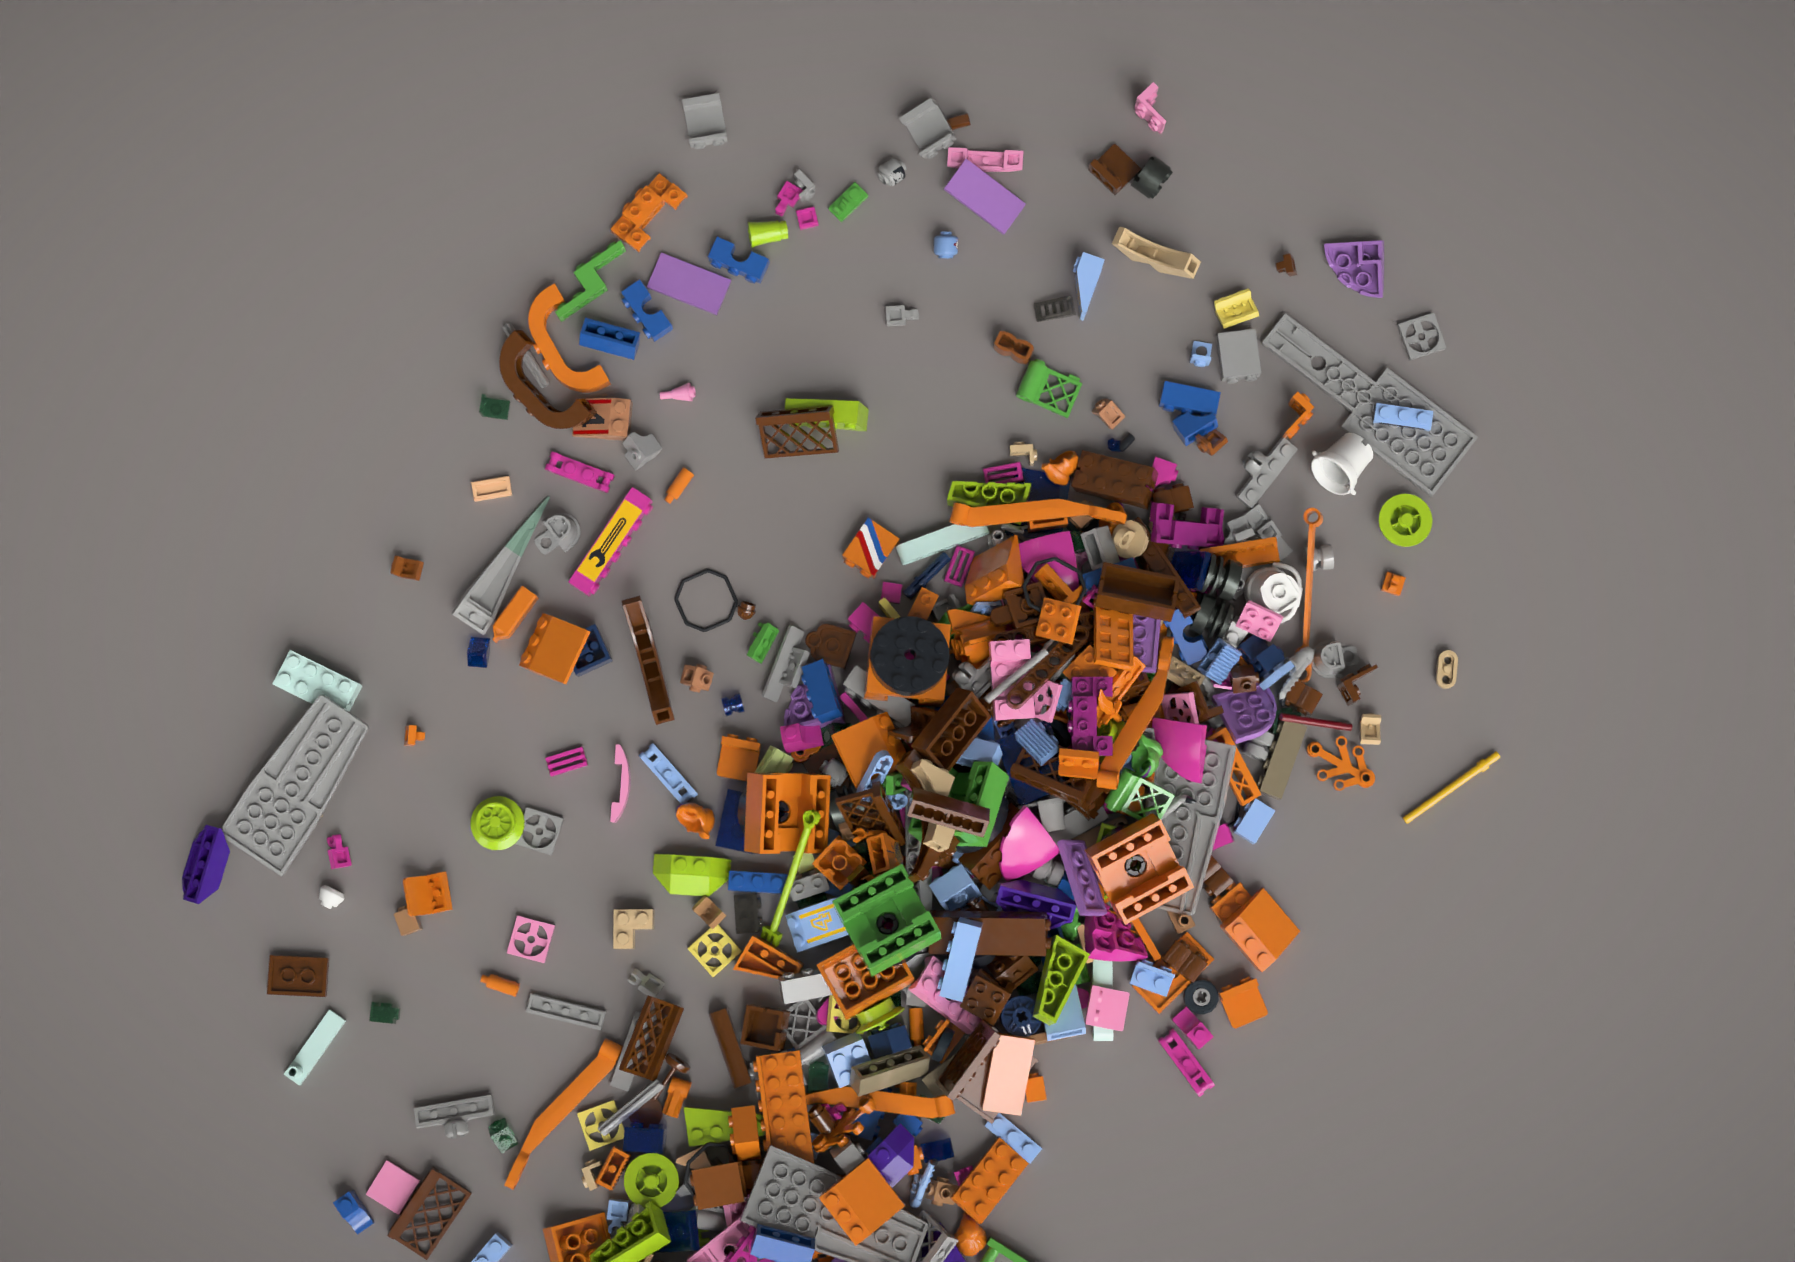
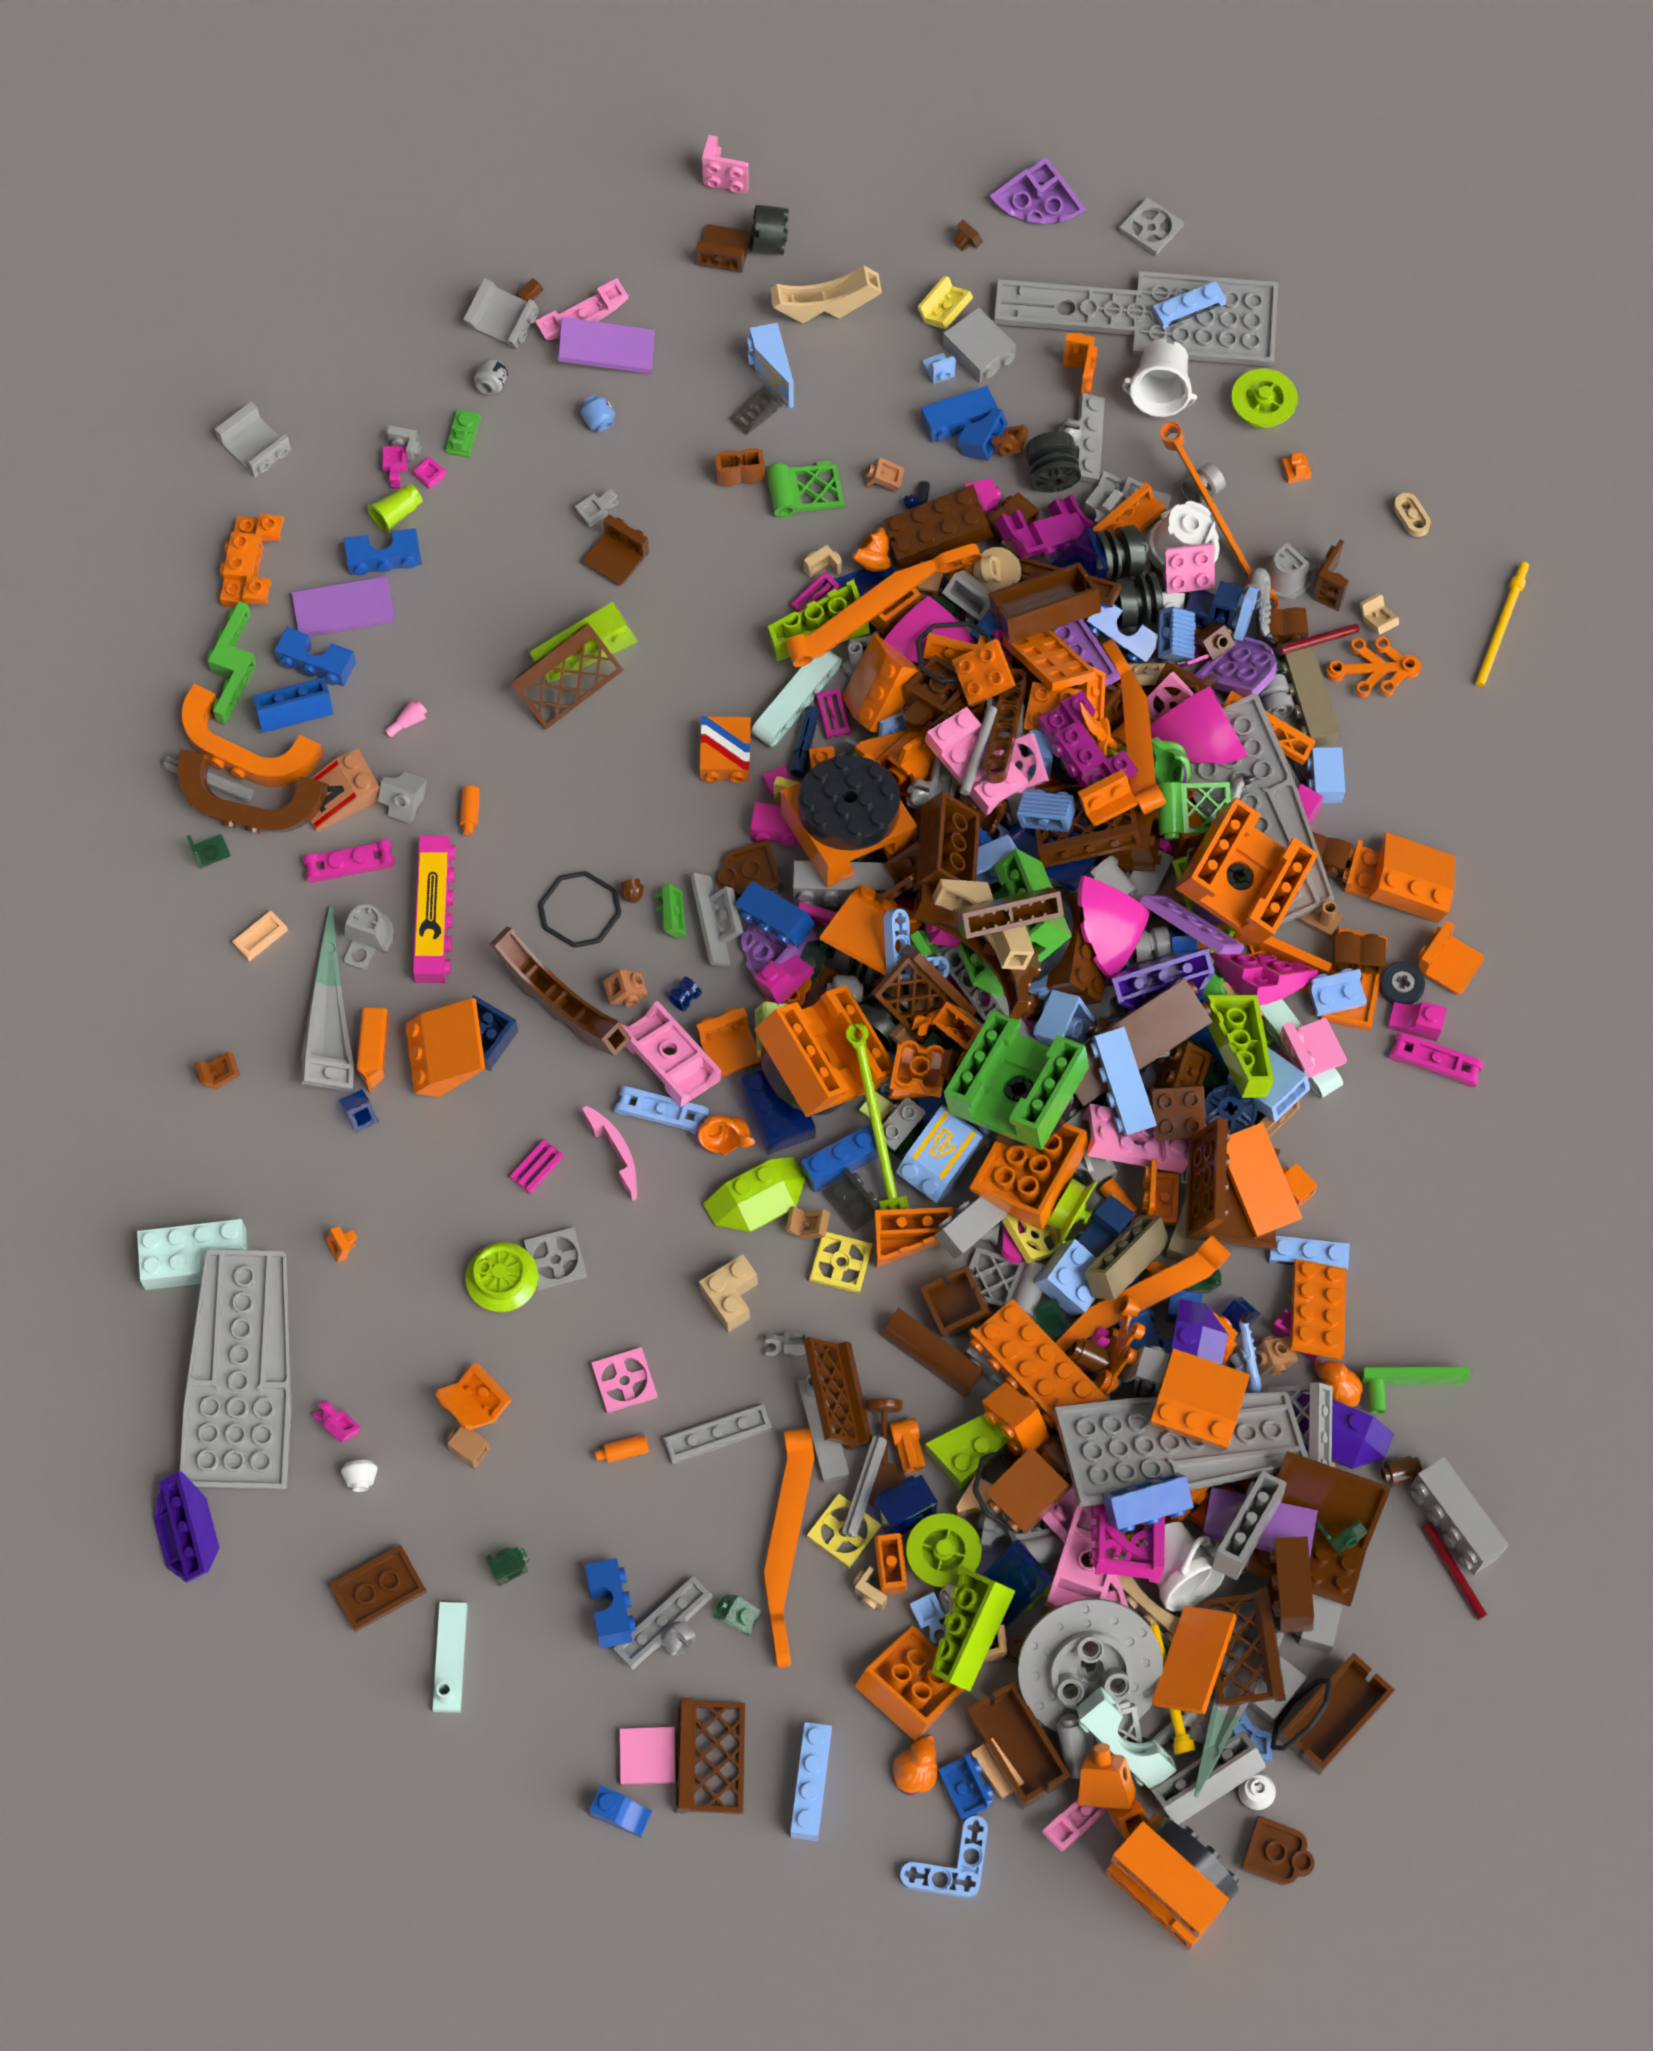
camera: 35 degrees left, 15 degrees down
(423, 1095) = (606, 1582): none -> blue arch
(700, 761) = (683, 1073): none -> bright pink piece
(892, 358) = (617, 551): none -> reddish brown bracket
(943, 1044) = (1166, 1194): black bush -> none
(1224, 481) = (1053, 461): none -> pearl dark grey wheel

